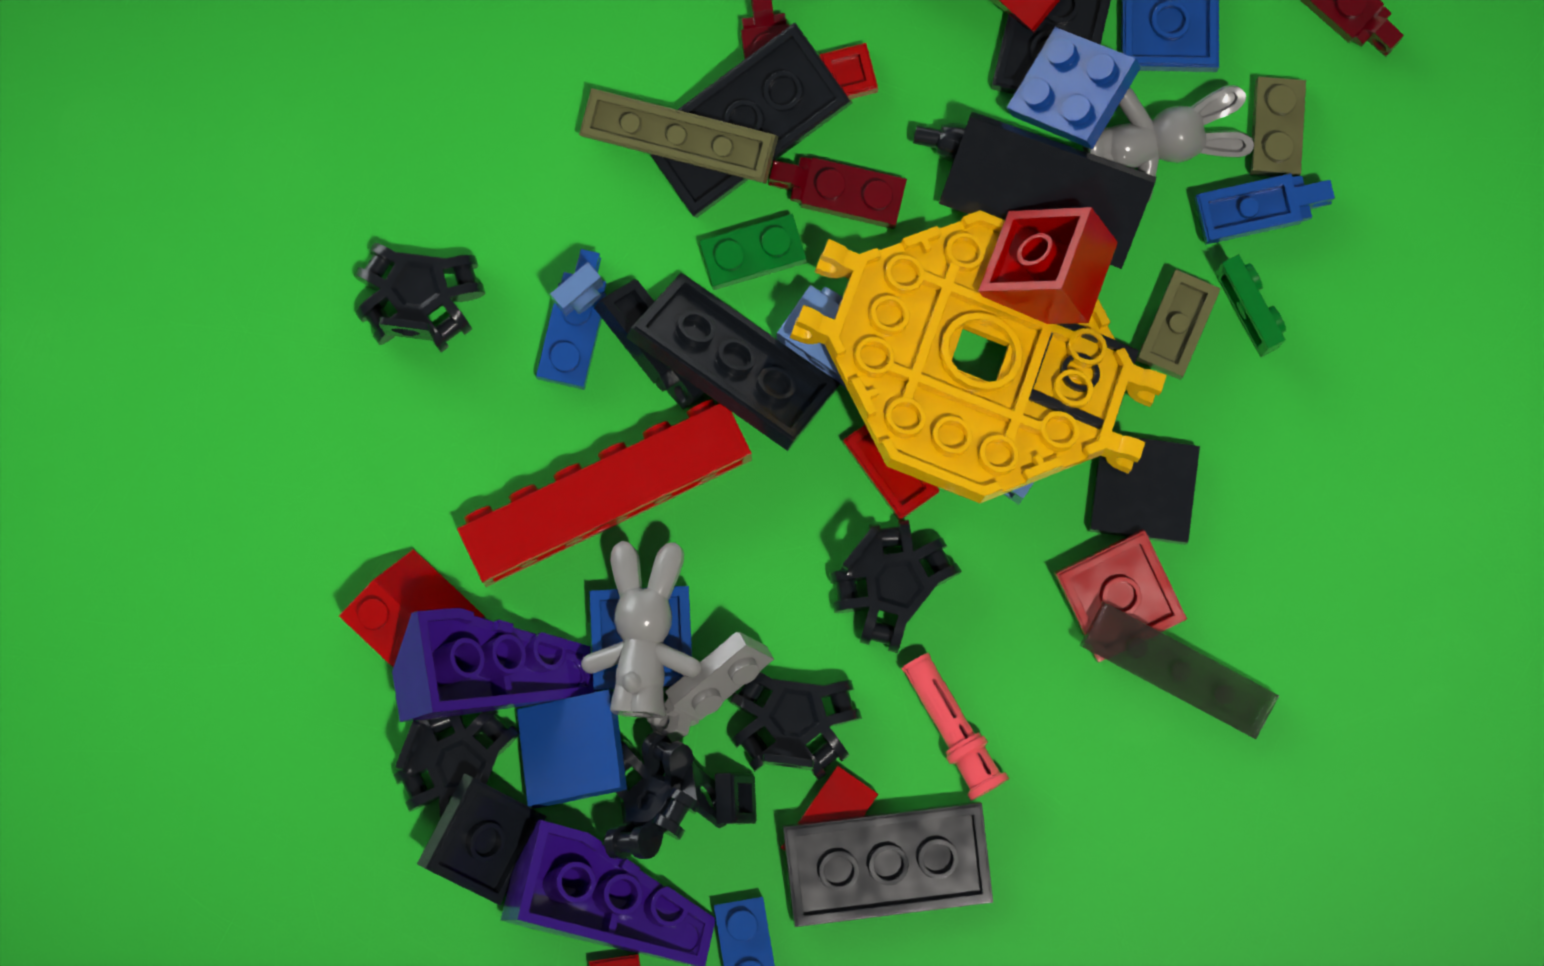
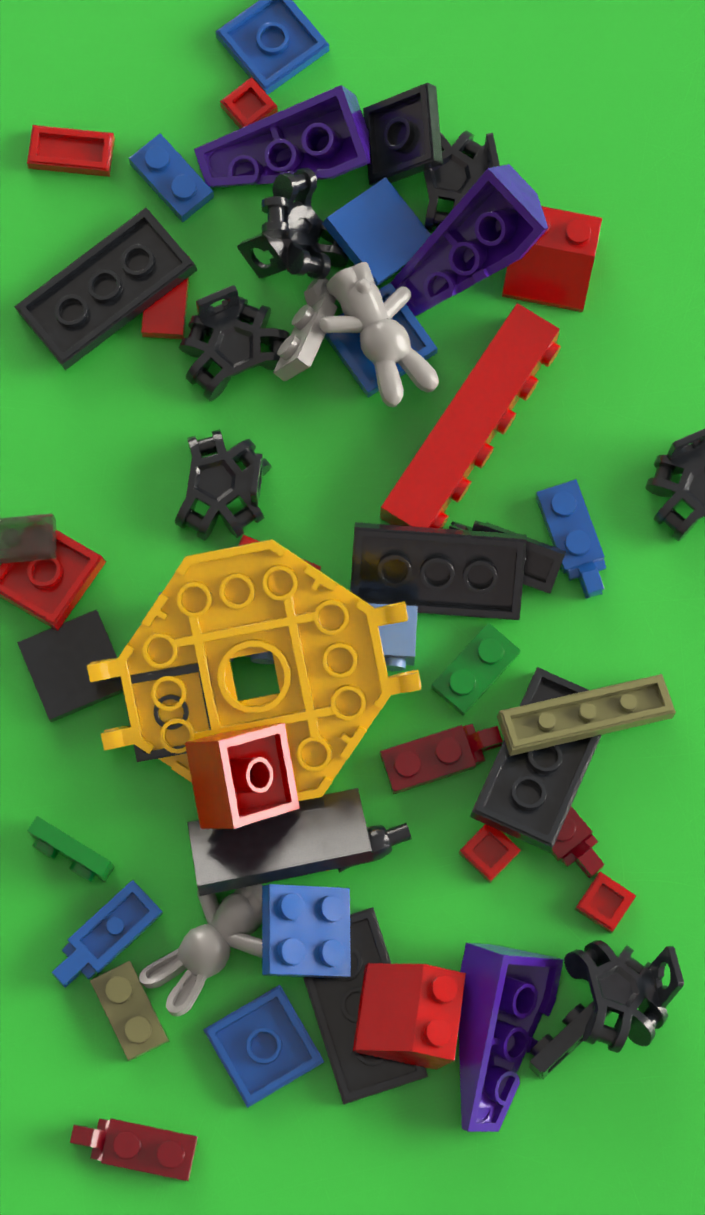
camera: 150 degrees right, 5 degrees down
(578, 291) = (582, 546): medium blue plate -> none
(735, 798) = (242, 267): black tile -> none
(965, 747) = (97, 399): coral pin -> none
(1178, 324) = (118, 803): olive plate -> none

